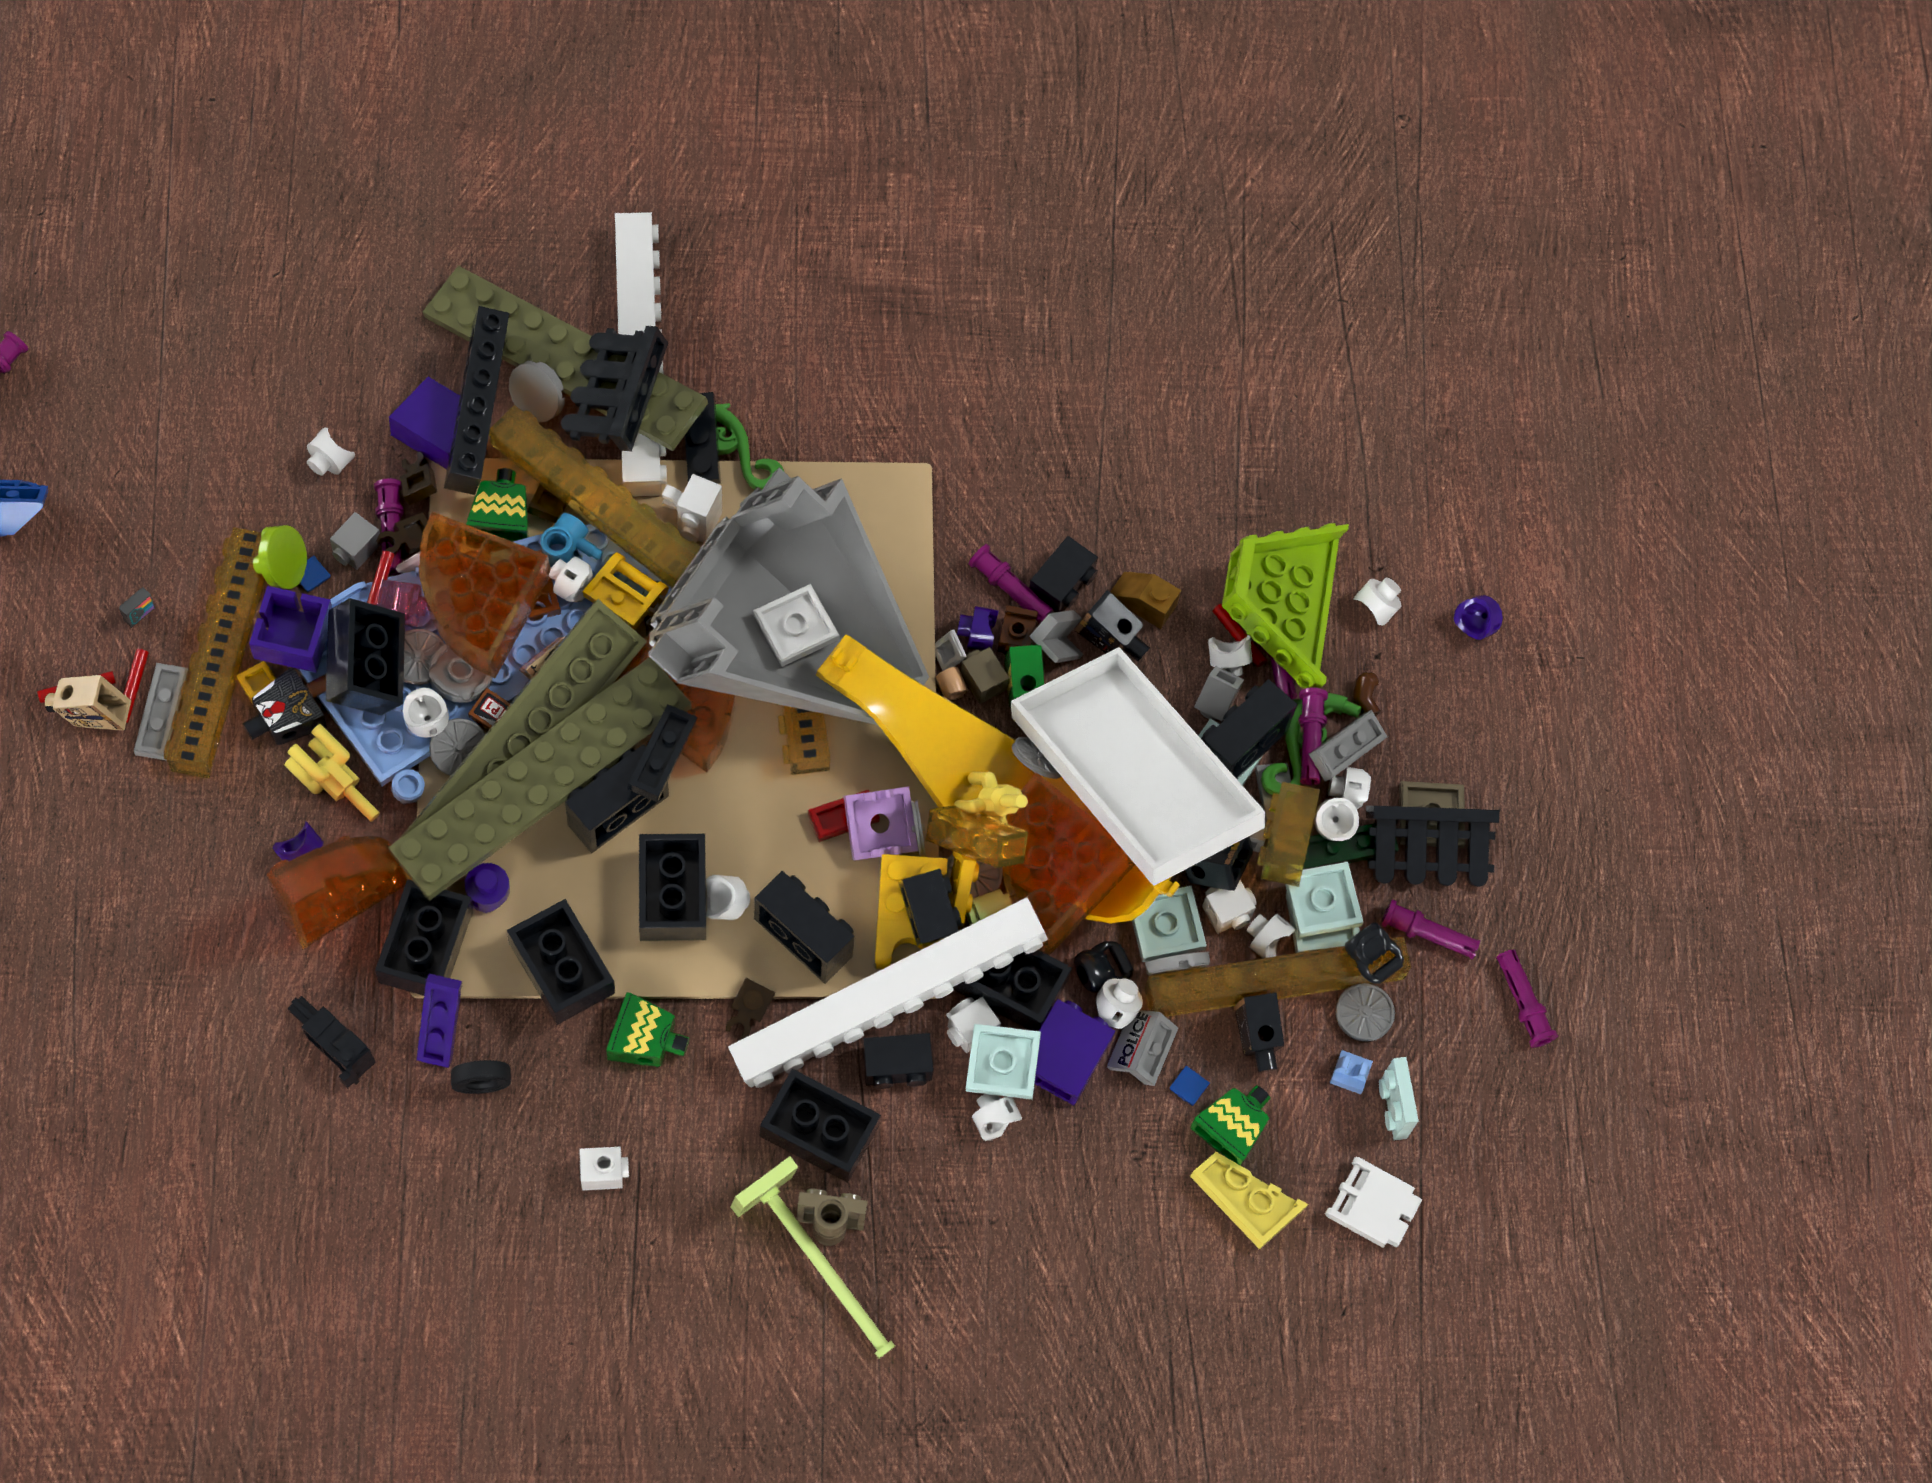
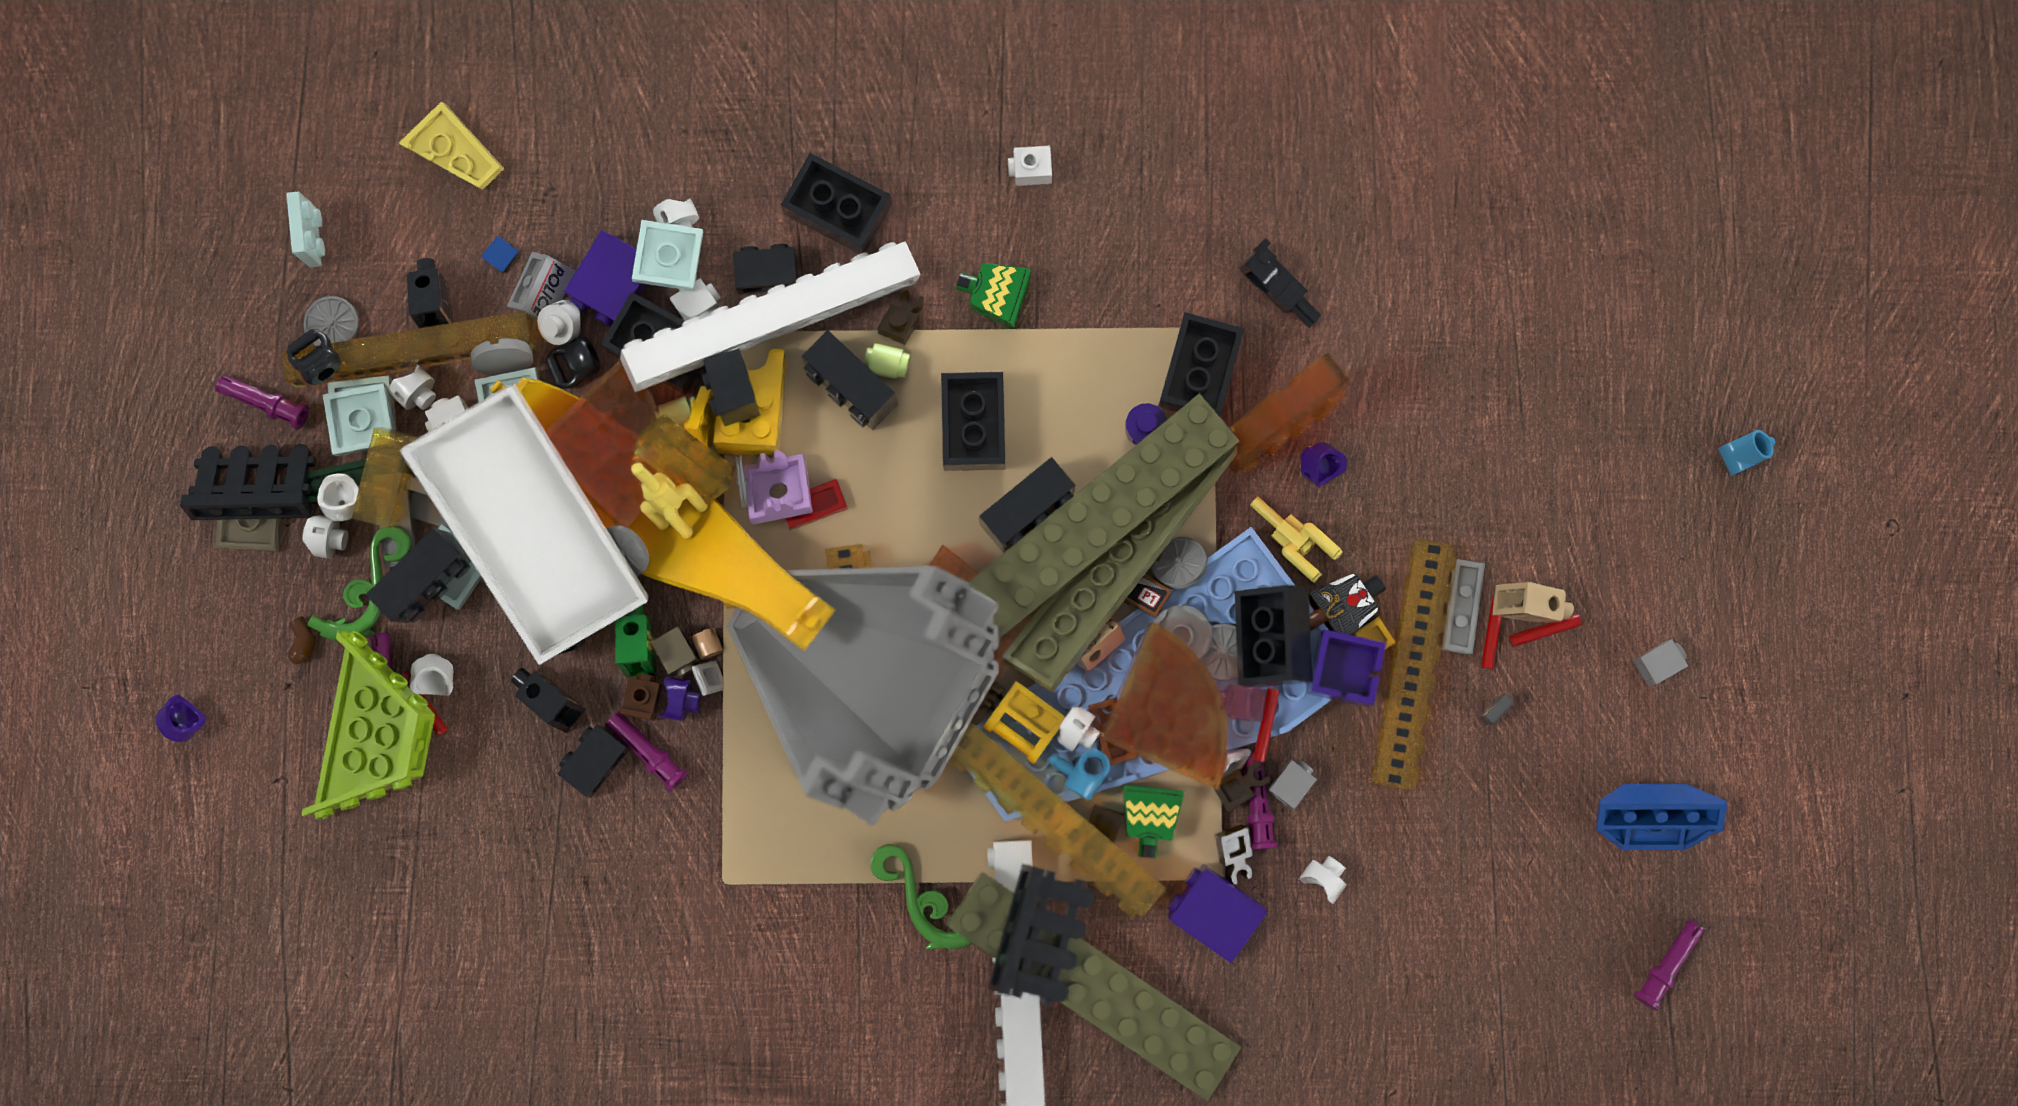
camera: 170 degrees left, 15 degrees up
(281, 557) = (1362, 760): lime tile -> none
(314, 574) = (1332, 754): blue piece -> none
(407, 786) = (1225, 526): light blue tile -> none
(425, 712) = (1212, 584): white piece -> none
(439, 1020) = (1183, 290): dark purple plate -> none
(476, 400) = (1179, 924): black brick -> none
(480, 1076) = (1143, 245): black tyre -> none
(537, 389) = (1120, 949): light grey tile -> none
(561, 961) = (1074, 348): black brick -> none
(662, 753) = (983, 529): black plate -> none
(696, 507) = (956, 812): white brick -> none
(702, 444) = (951, 888): black plate -> none
(726, 897) = (923, 413): white piece -> none
(764, 955) = (887, 361): none -> yellowish green brick
(767, 1191) = (885, 143): yellowish green tile -> none
(796, 625) = (856, 675): white tile -> none
(817, 1206) = (815, 123): dark tan plate -> none
(1053, 635) = (602, 683): light grey panel -> none
(1147, 596) = (513, 740): pearl gold slope -> none
(1218, 693) = (445, 632): light grey brick -> none
(1233, 1123) = (459, 214): green torso -> none
(1312, 722) = (355, 599): magenta pin -> none
(1348, 745) = (322, 578): light grey tile -> none
(1351, 1072) = (349, 267): light blue tile -> none
(1375, 1204) = (337, 143): white plate -> none
(1380, 598) = (278, 739): white piece -> none
(1531, 1011) = (175, 323): magenta pin -> none

